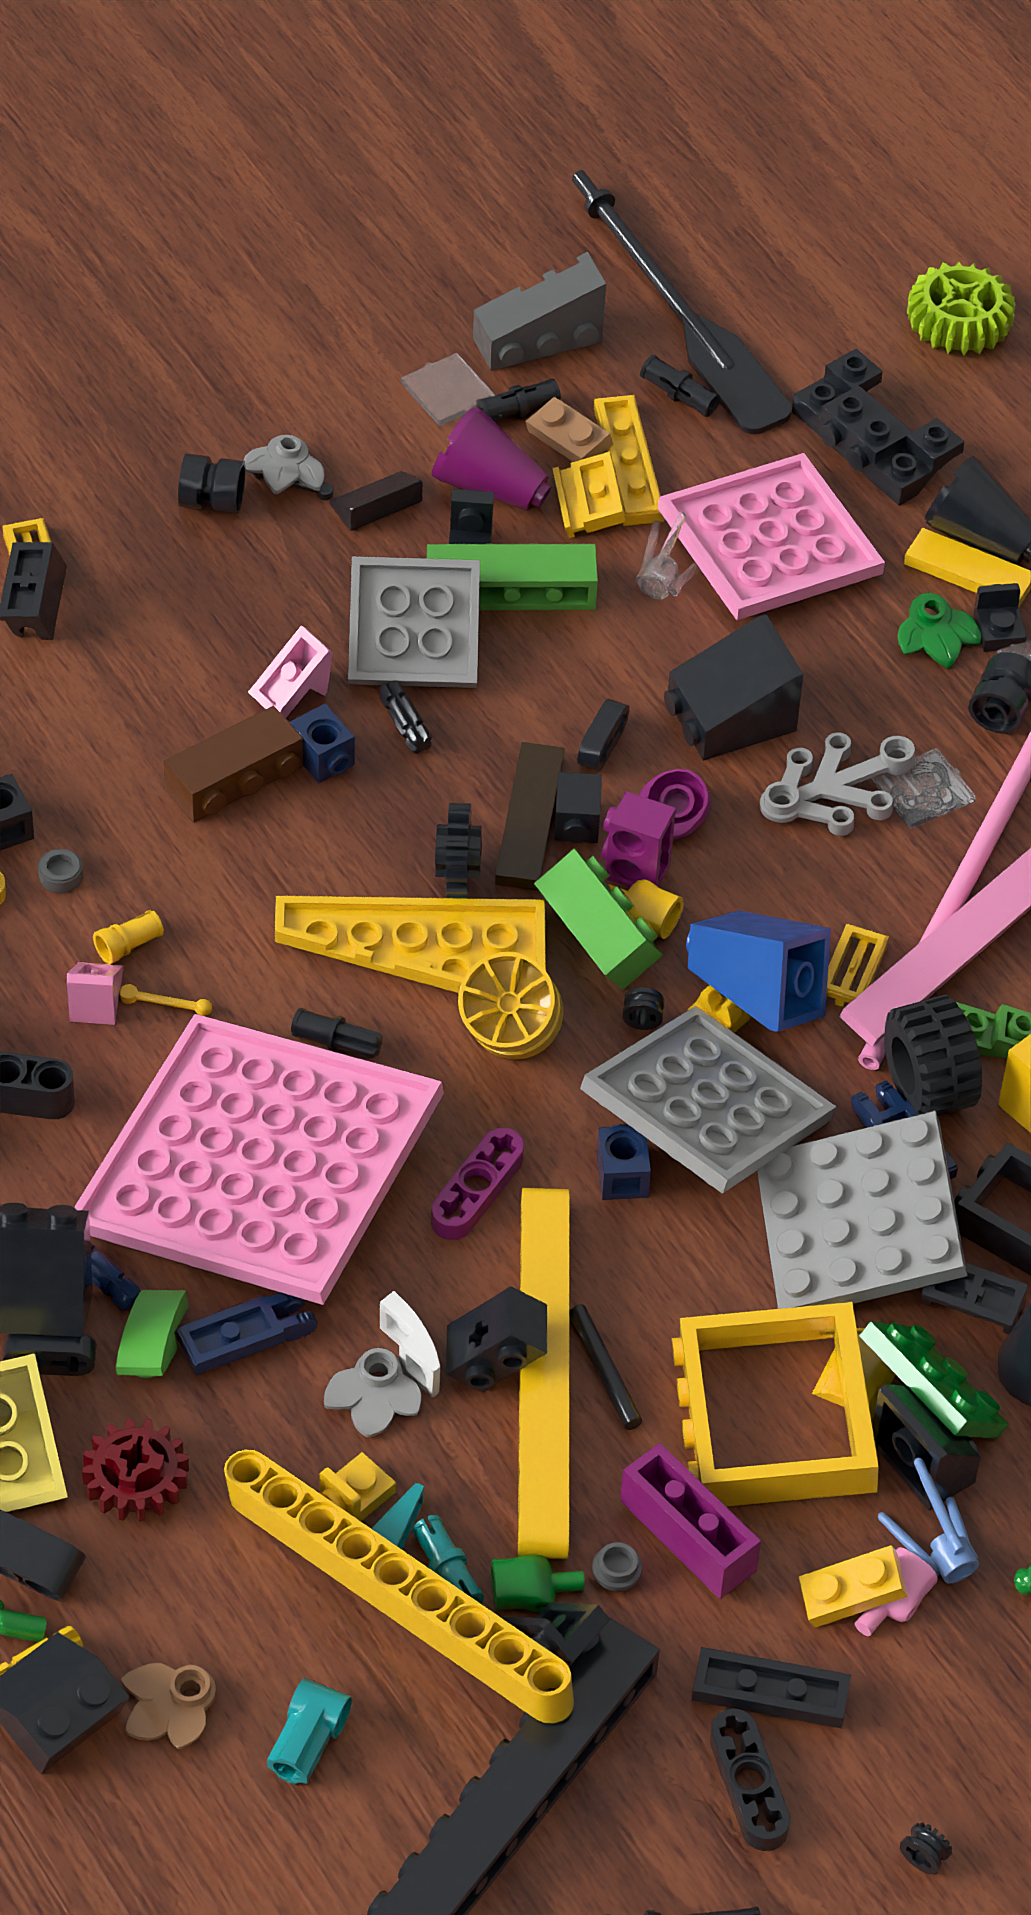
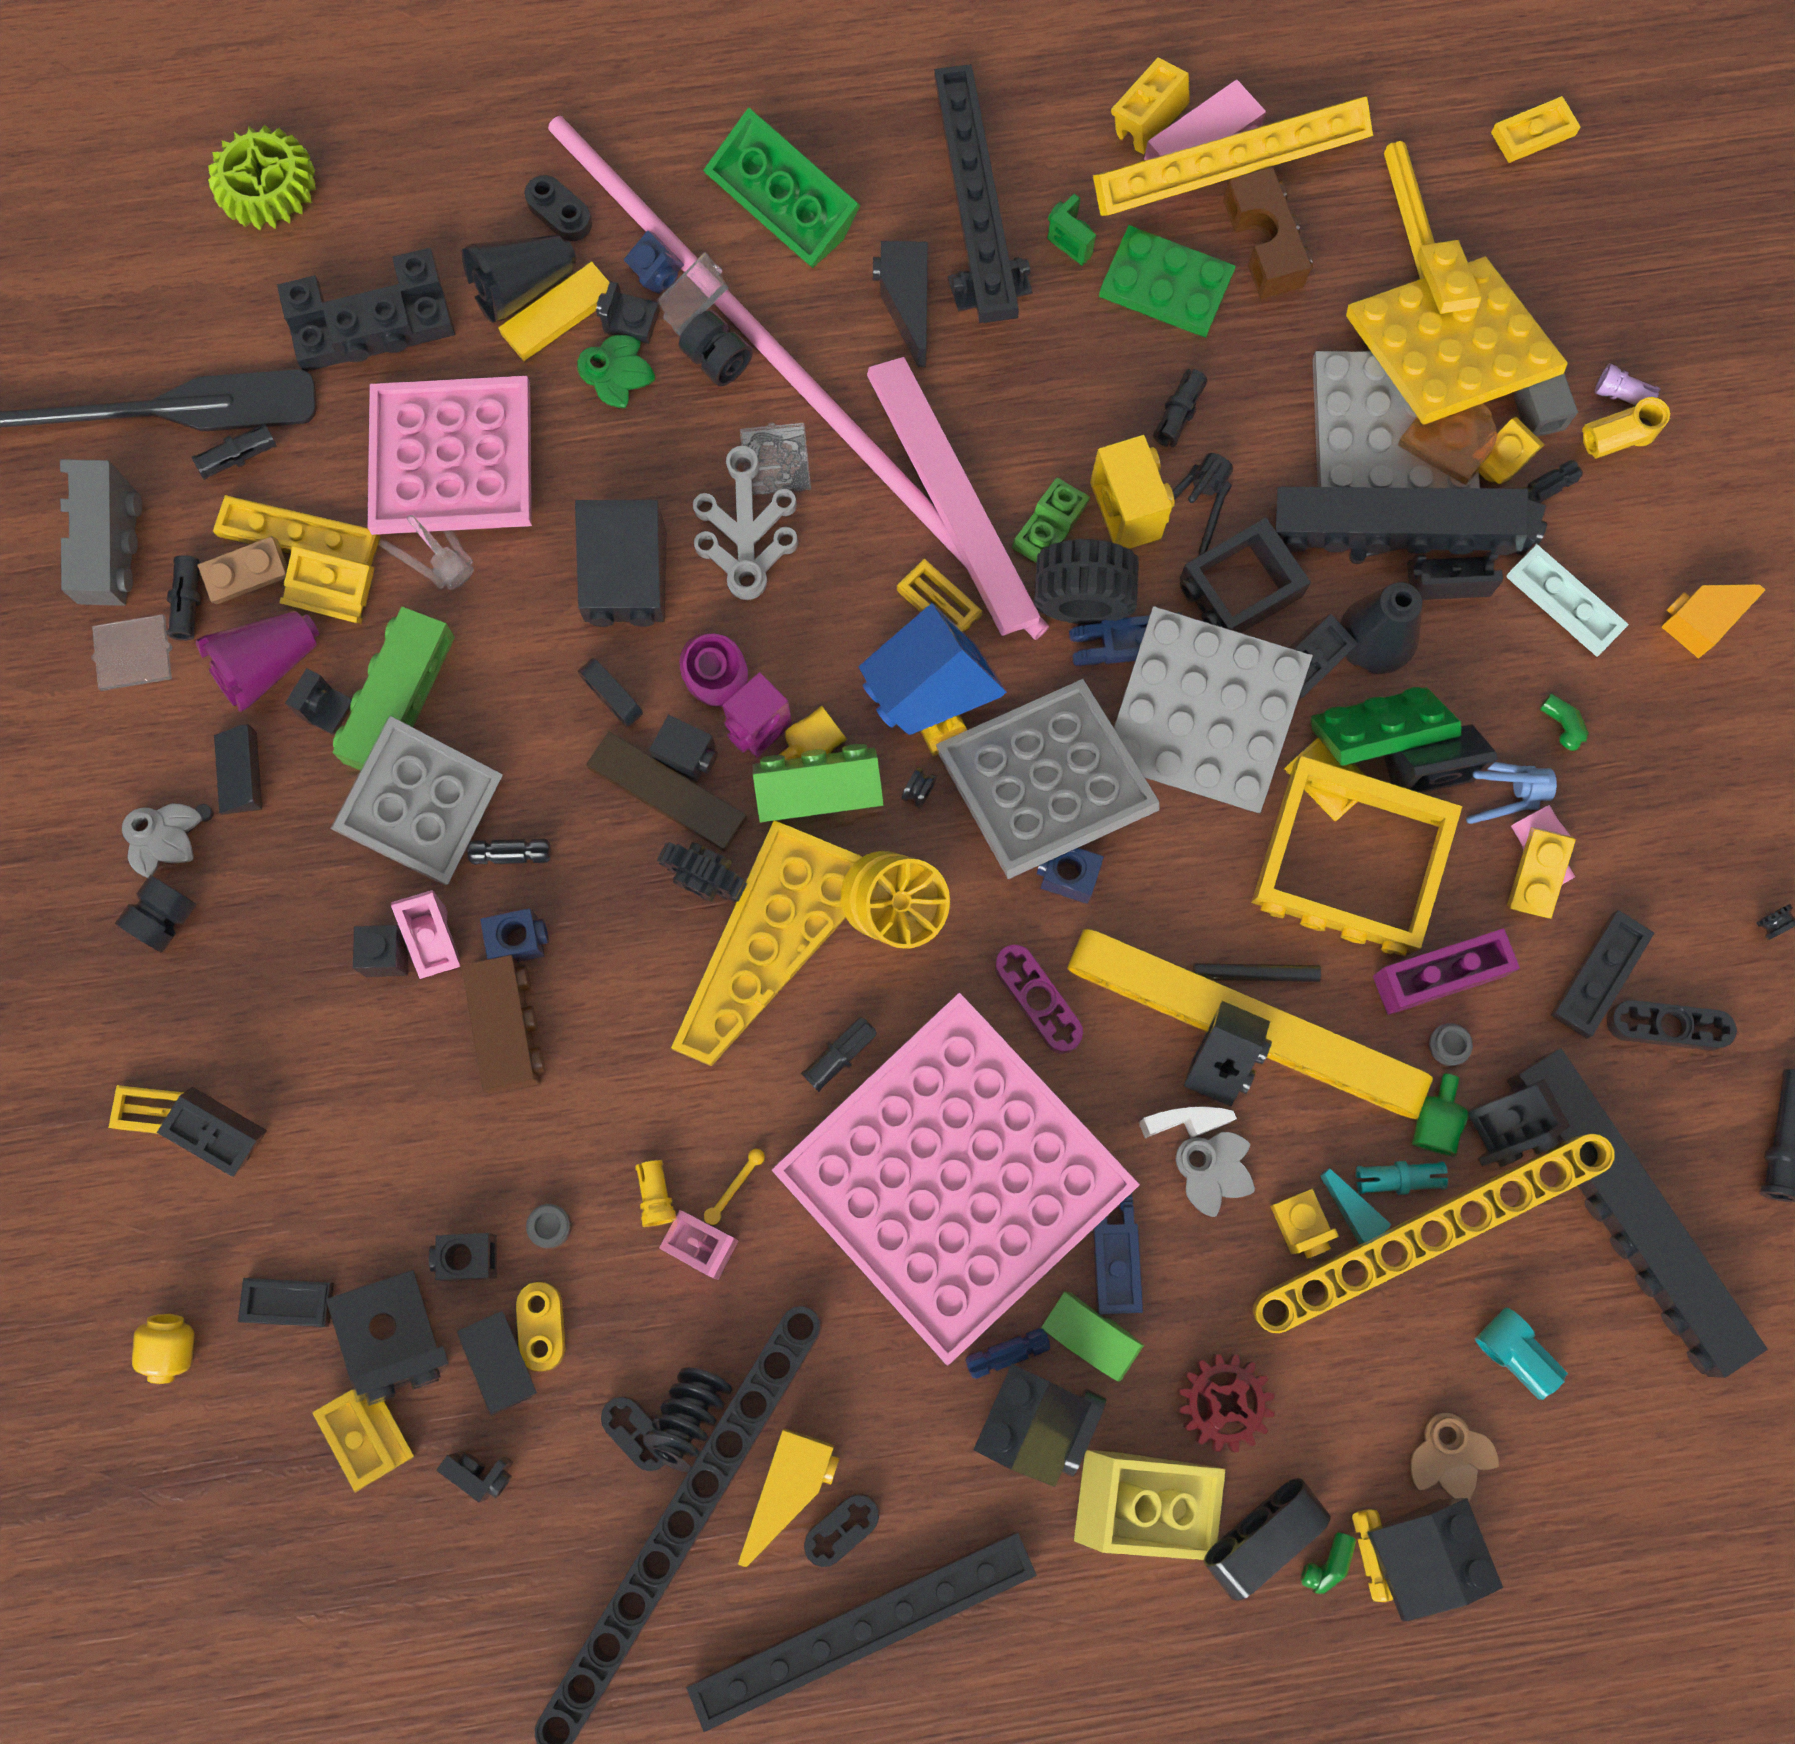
camera: 65 degrees left, 25 degrees up
(255, 646) = (380, 951): none -> black brick

